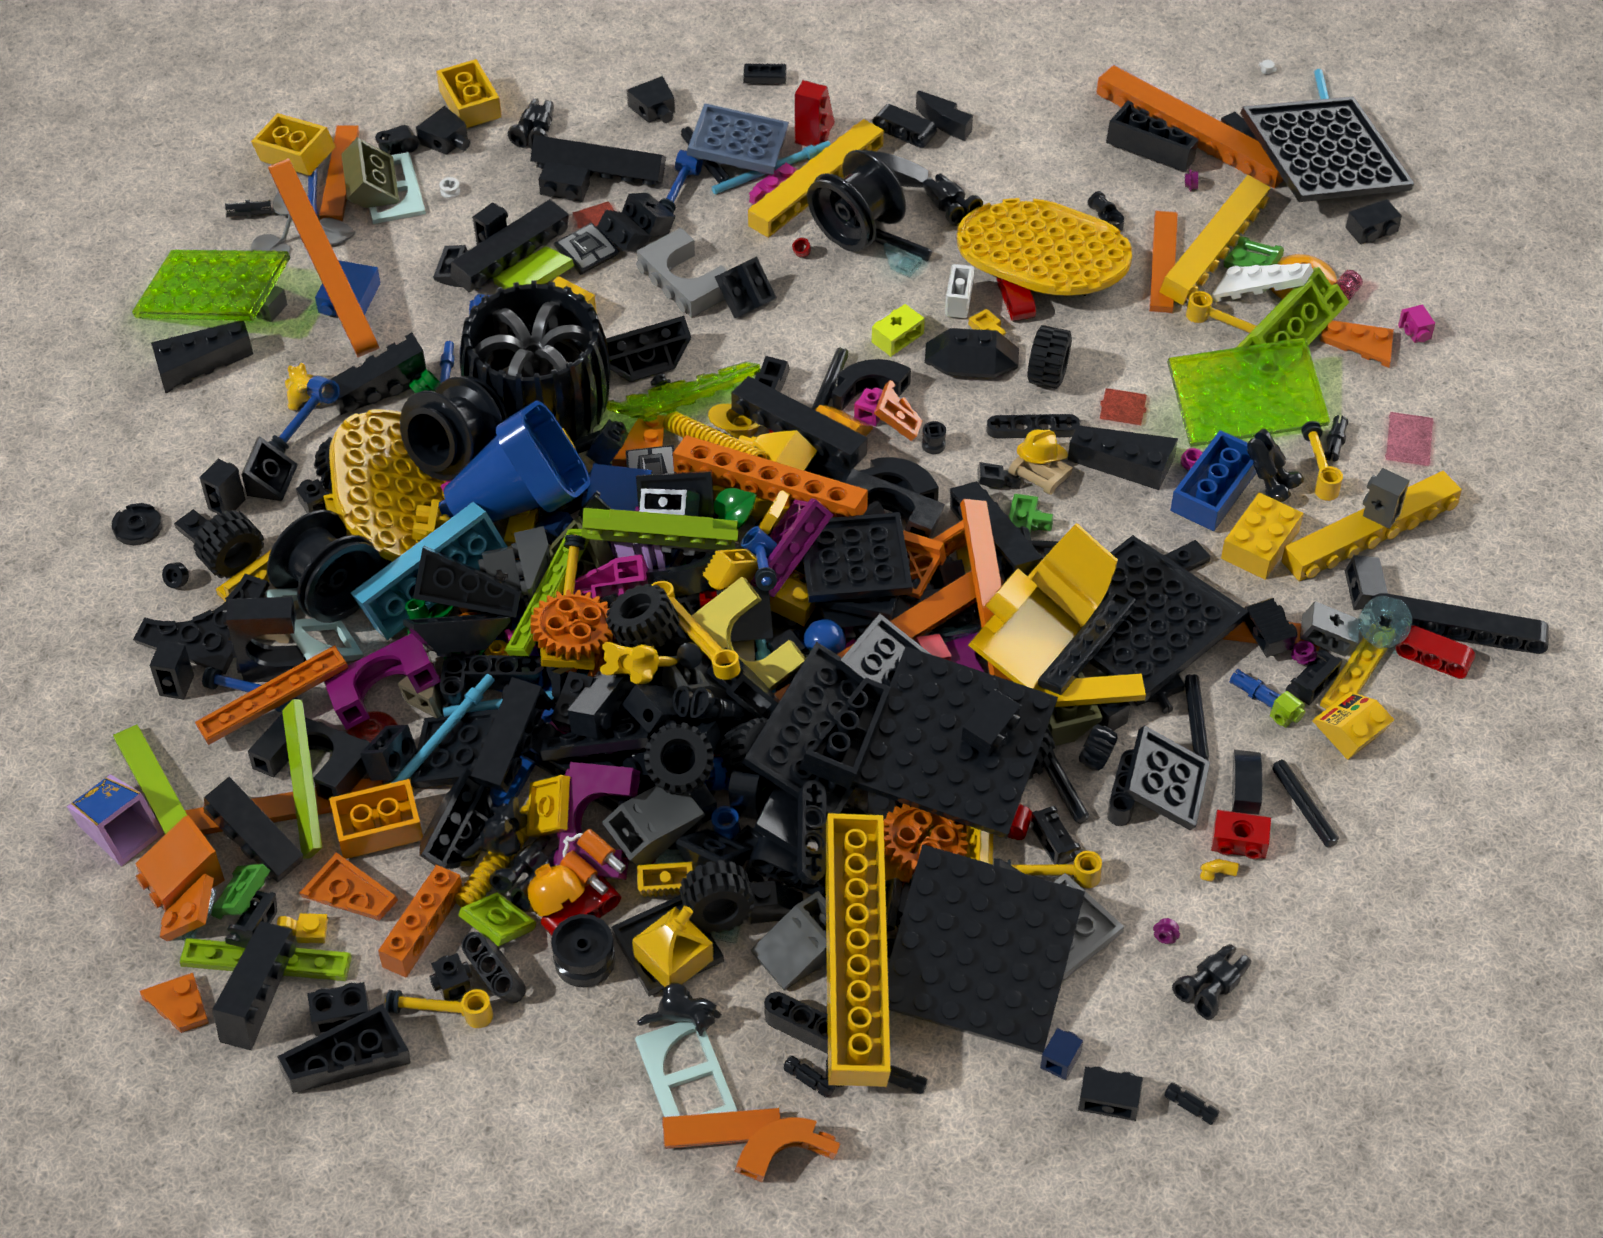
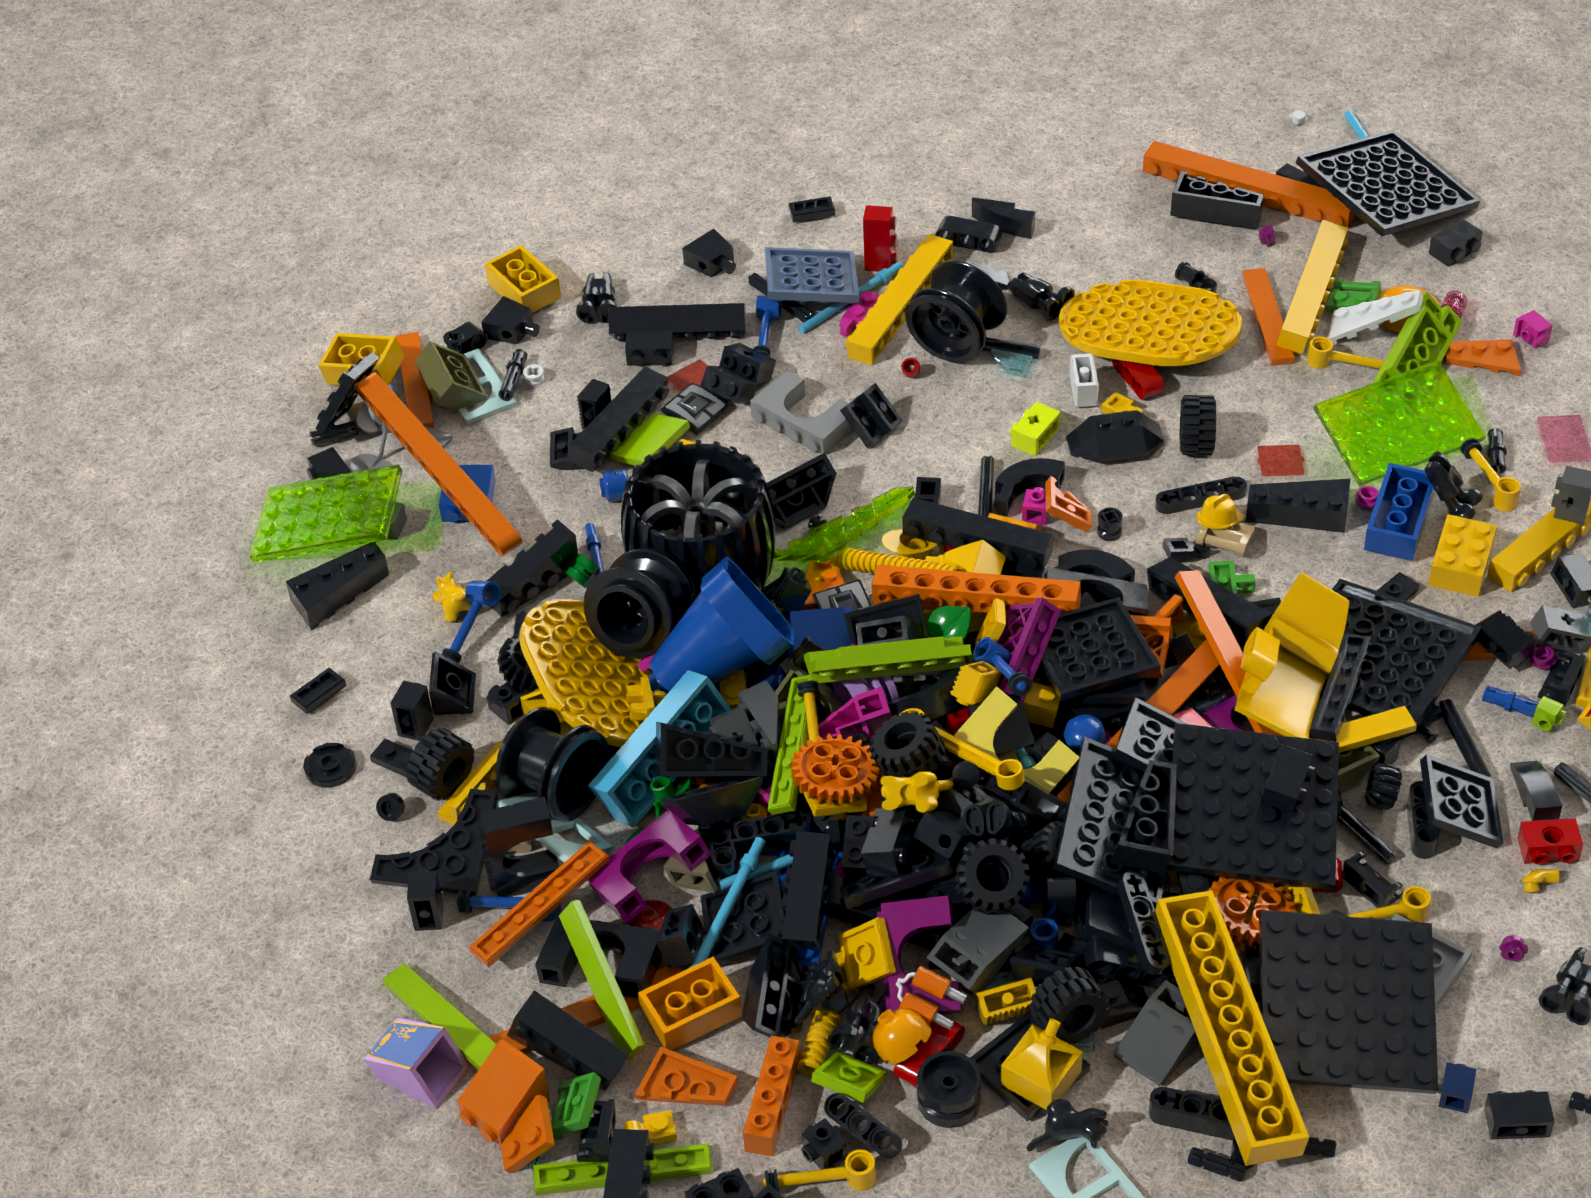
camera: 10 degrees left, 5 degrees down
(149, 451) = (318, 690): none -> black plate
(228, 238) = (326, 464): none -> black slope
(257, 178) = (343, 398): none -> black plate
(432, 180) = (514, 371): none -> black pin

